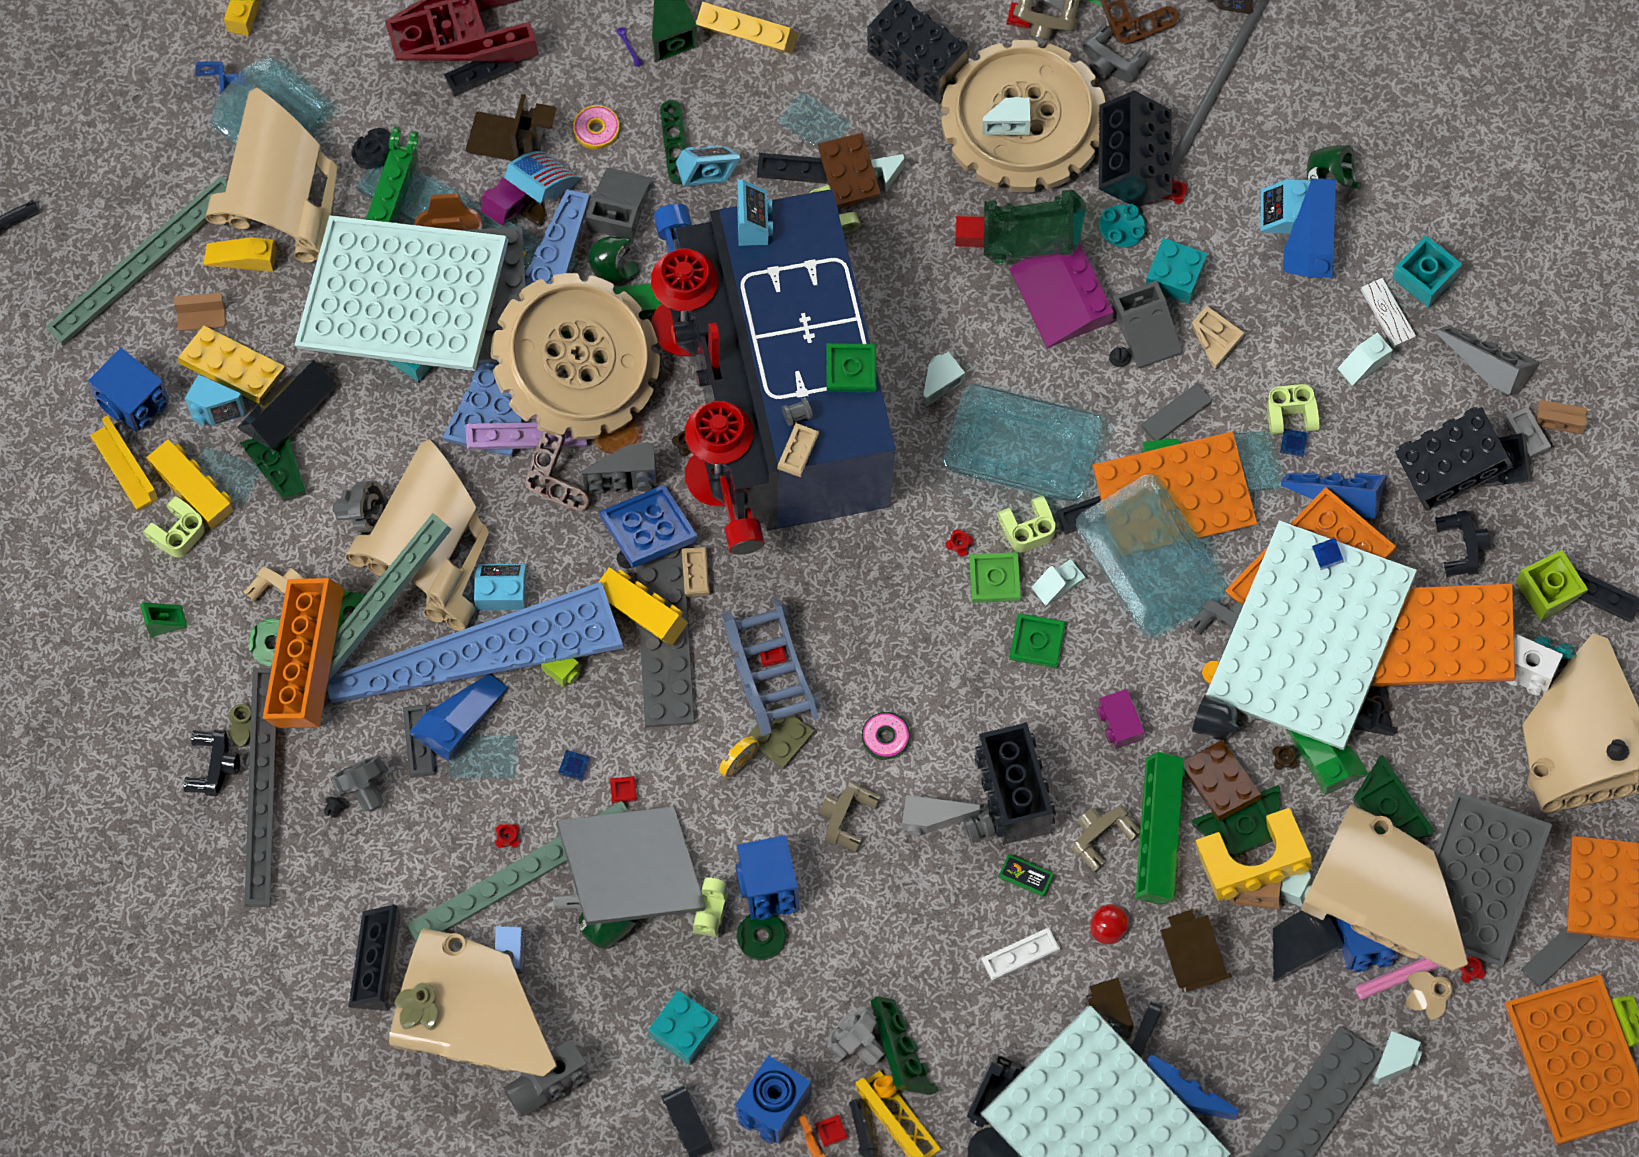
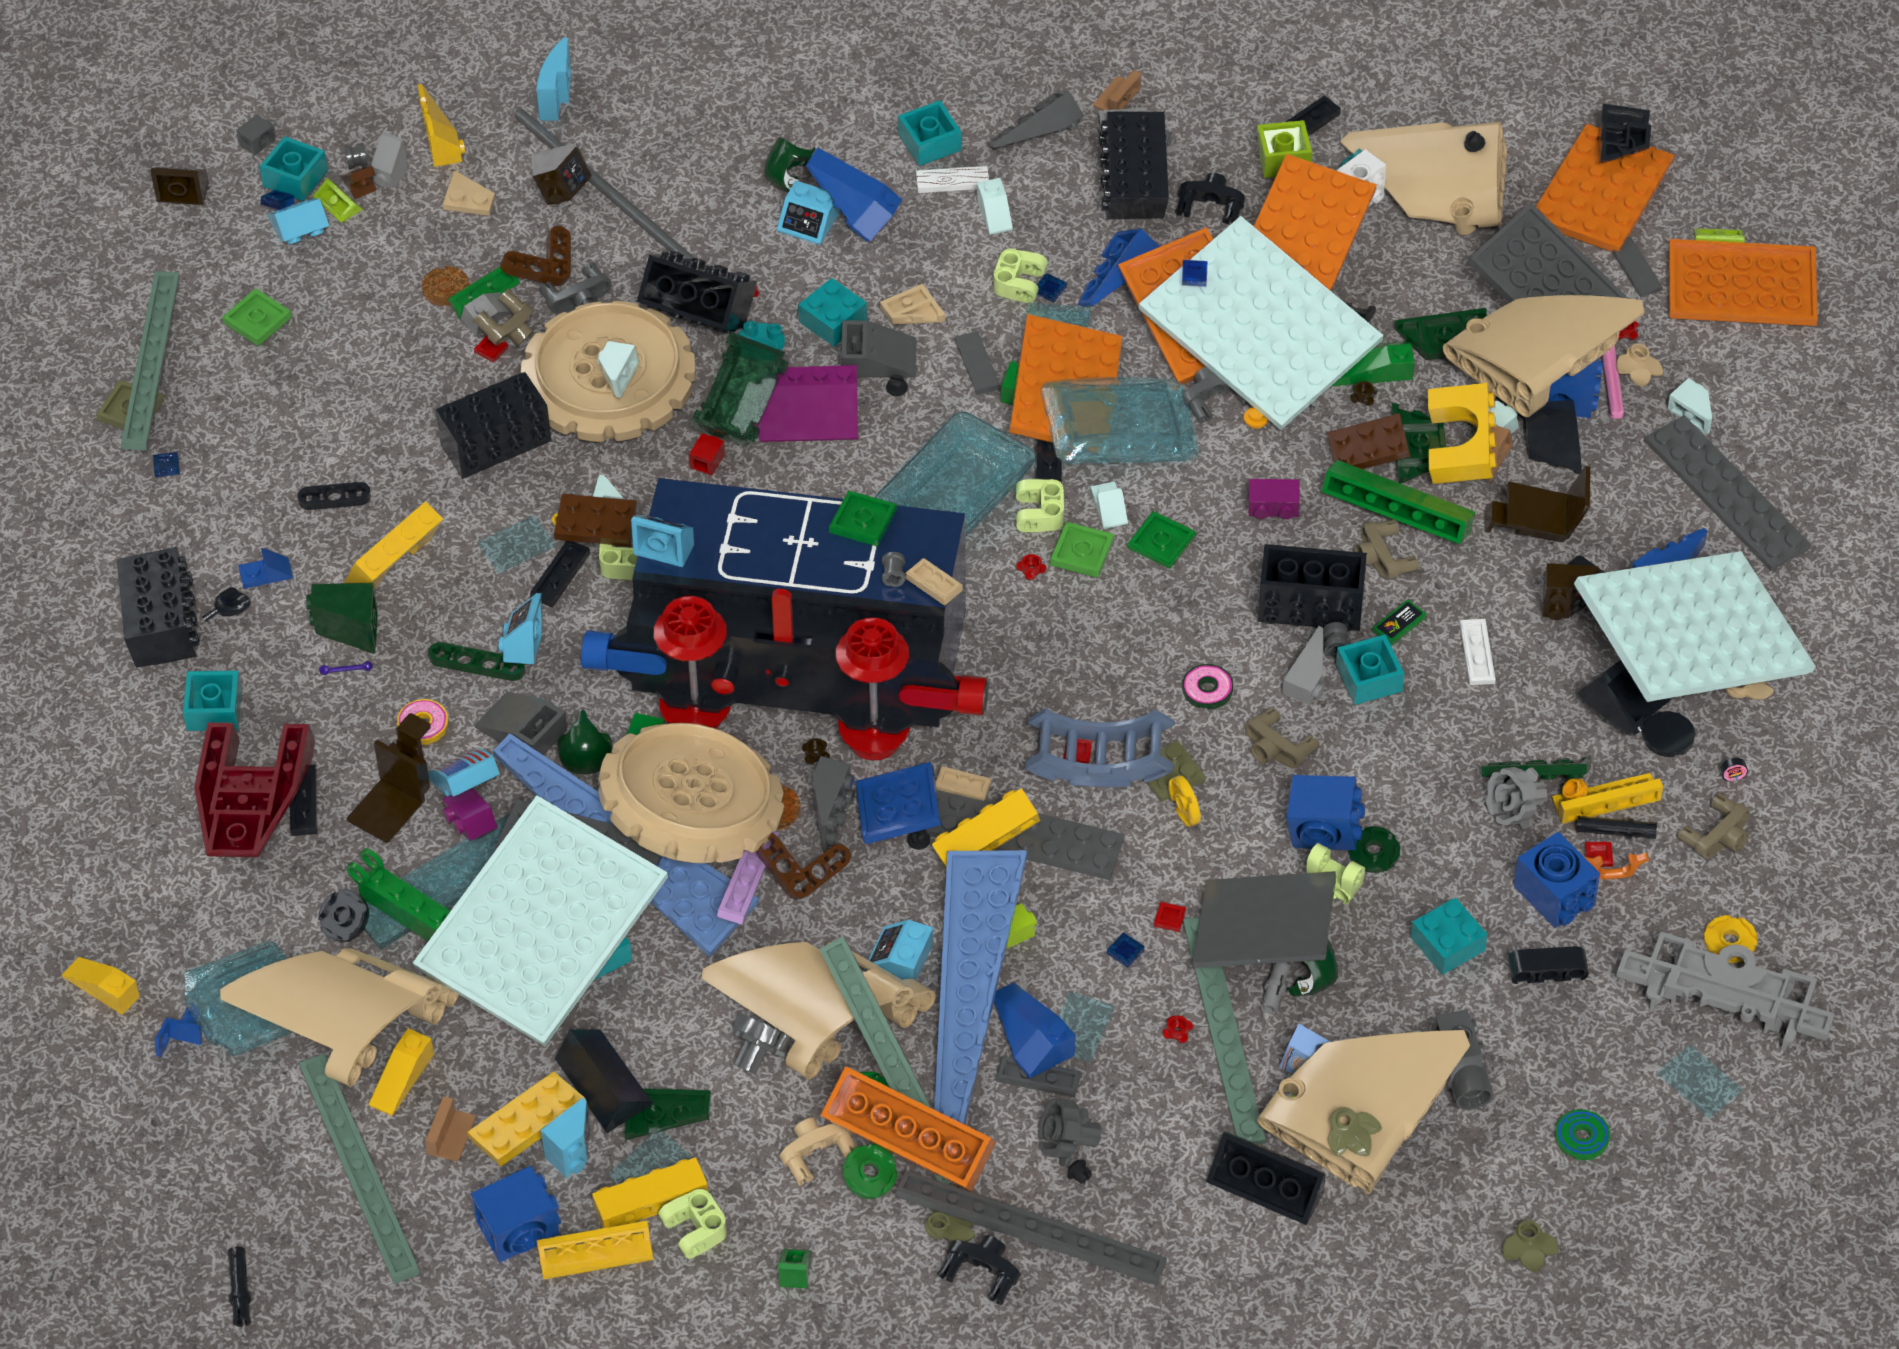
camera: 70 degrees left, 15 degrees down
(449, 212) = (463, 859): dark orange piece -> none
(534, 212) = (495, 801): dark brown tile -> none
(951, 865) = (1370, 669): none -> teal brick
(1109, 924) = (1475, 574): red hair -> none
(1216, 719) = (1307, 425): black piece -> none

